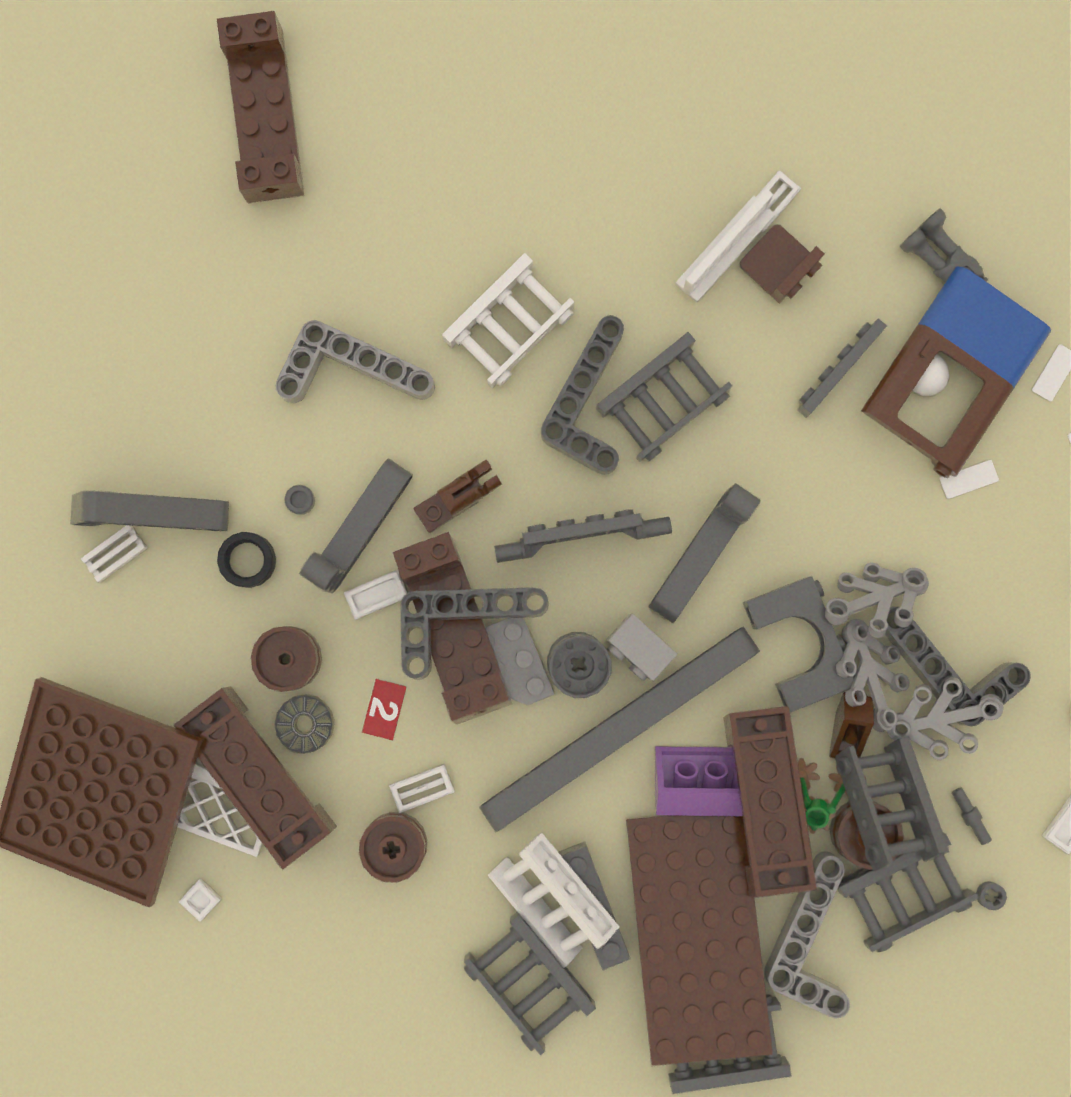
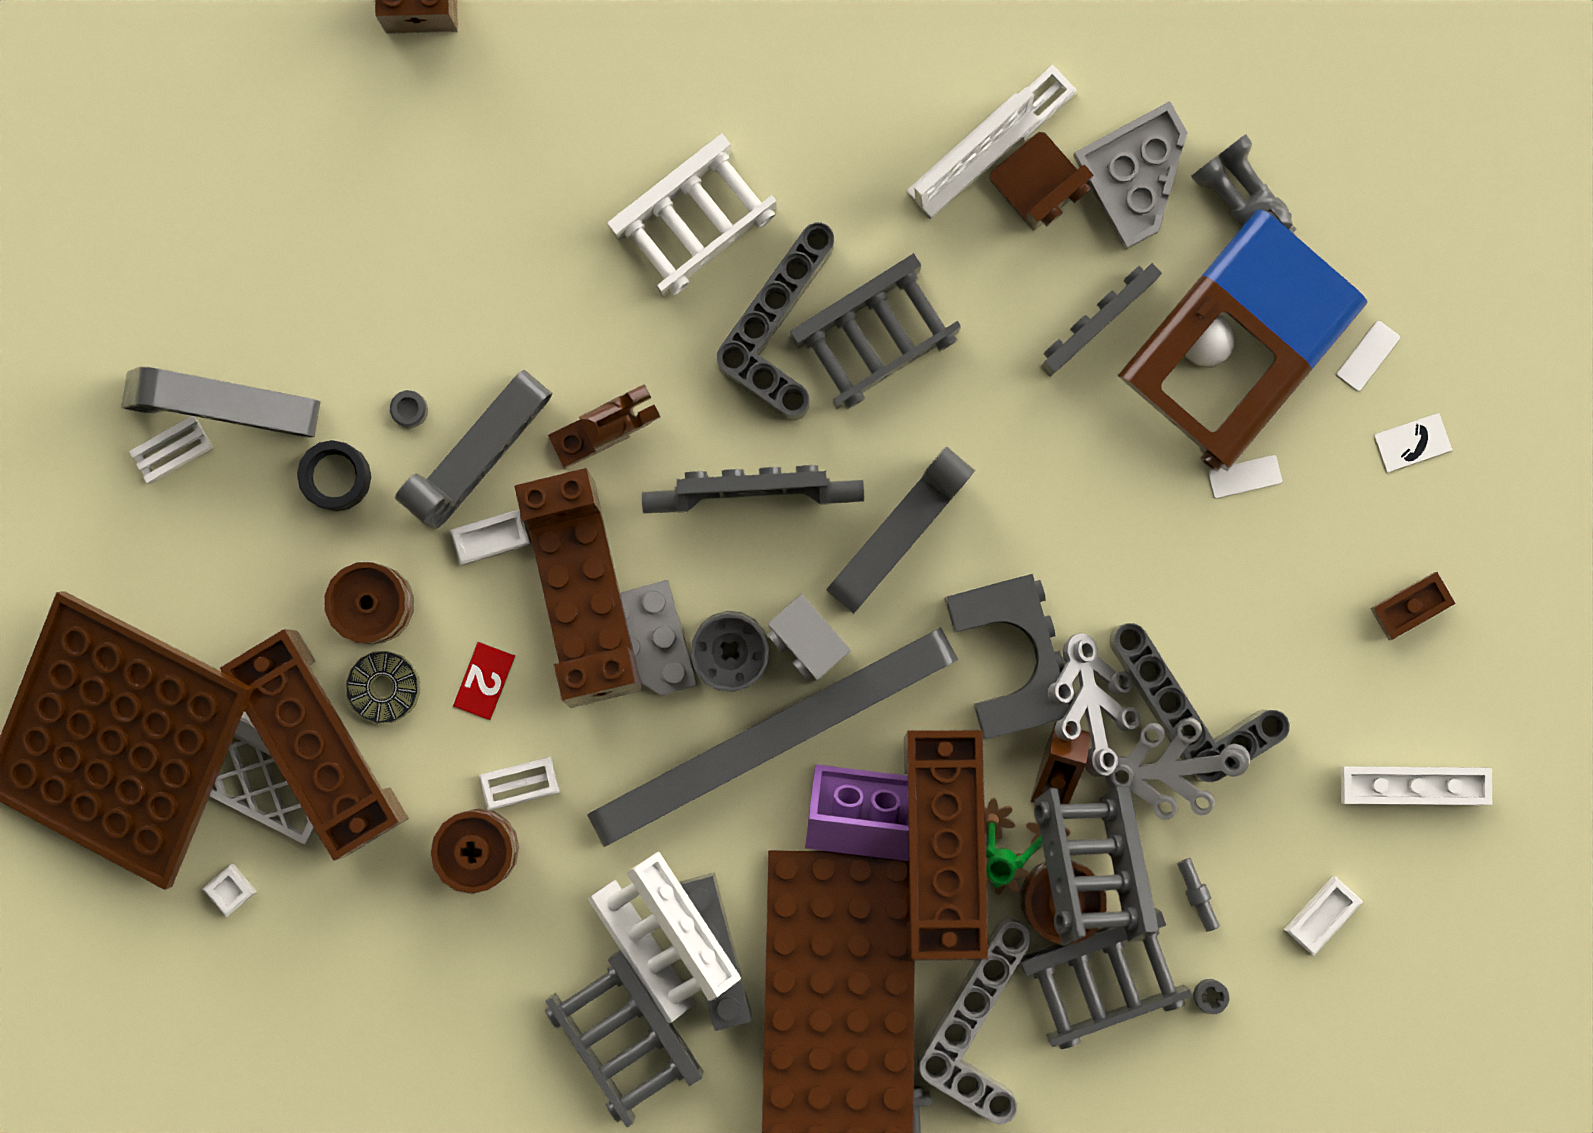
camera: 10 degrees right, 0 degrees up
(351, 359) = (493, 240): light grey beam -> none
(458, 612) = (590, 568): dark grey beam -> none
(855, 248) = (1136, 172): none -> light grey plate
(878, 595) = (1112, 606): light grey plant -> none

